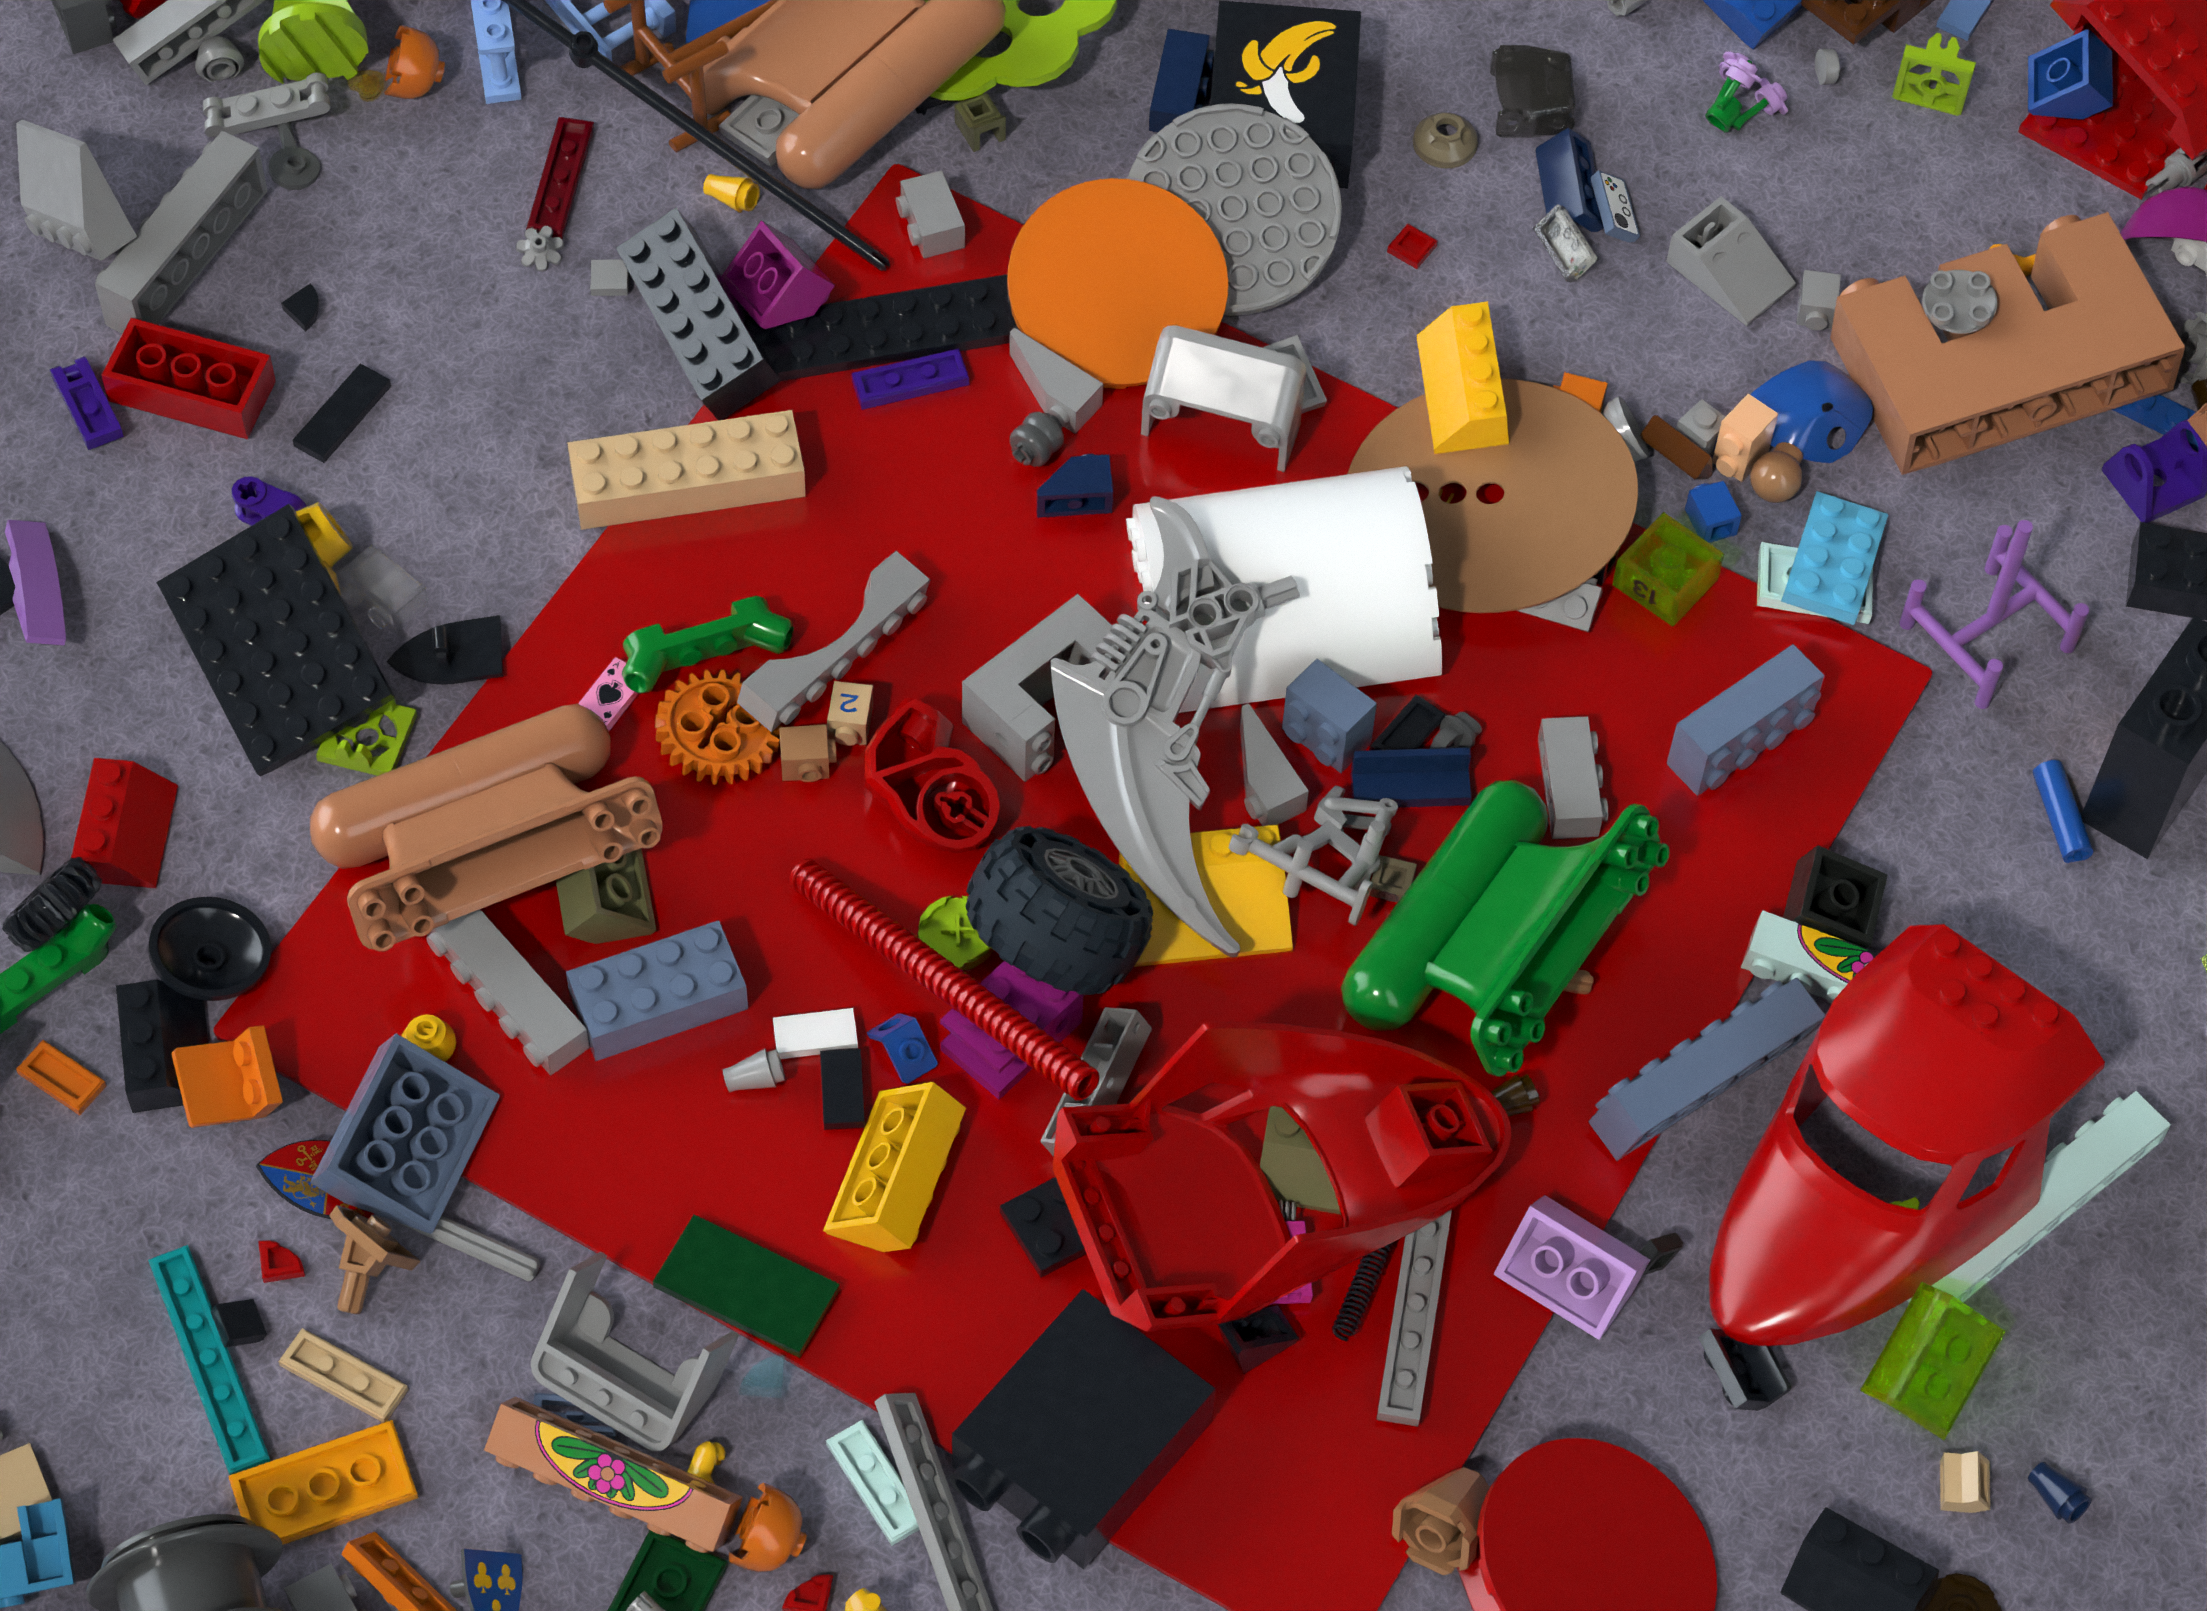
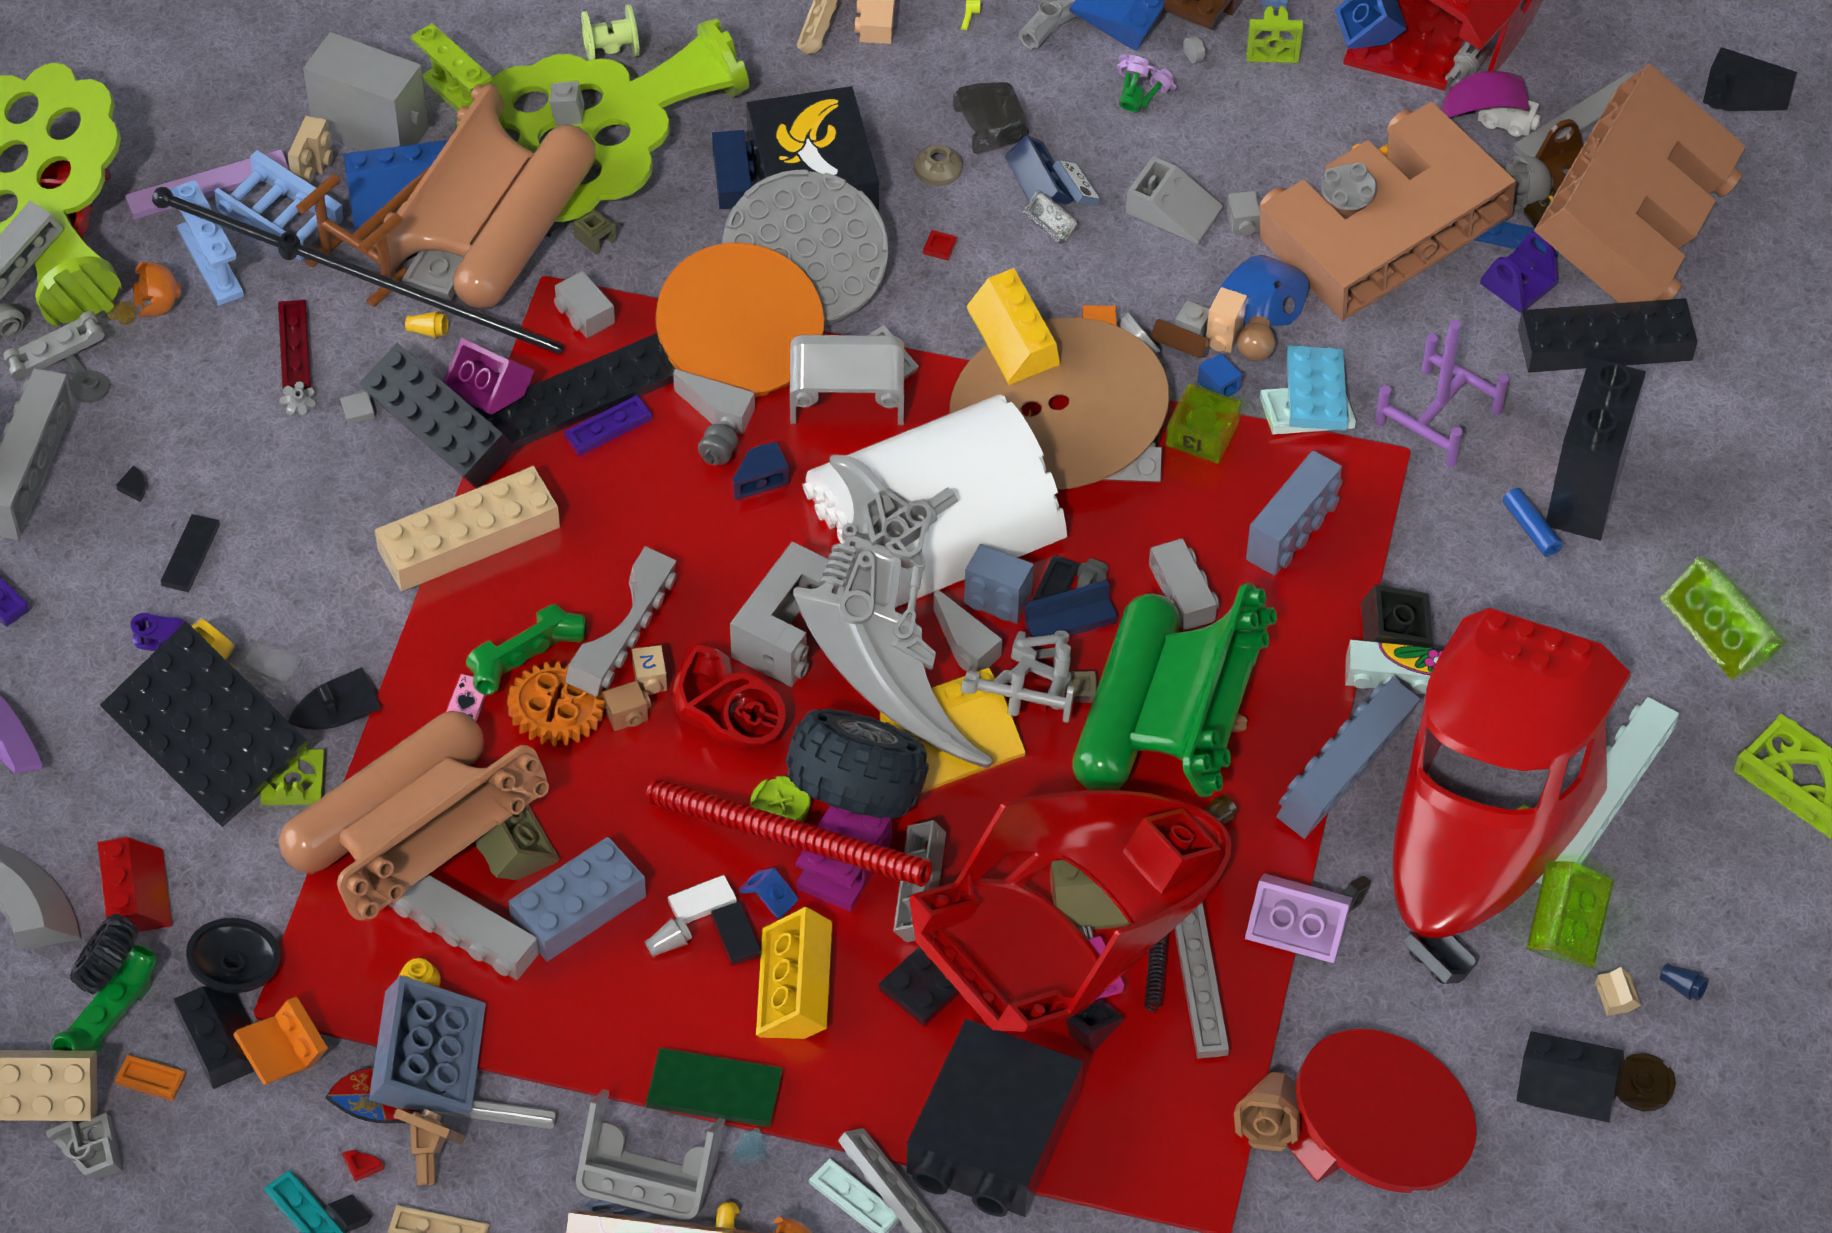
camera: 15 degrees left, 5 degrees down
(189, 378) = (67, 555): red brick -> none

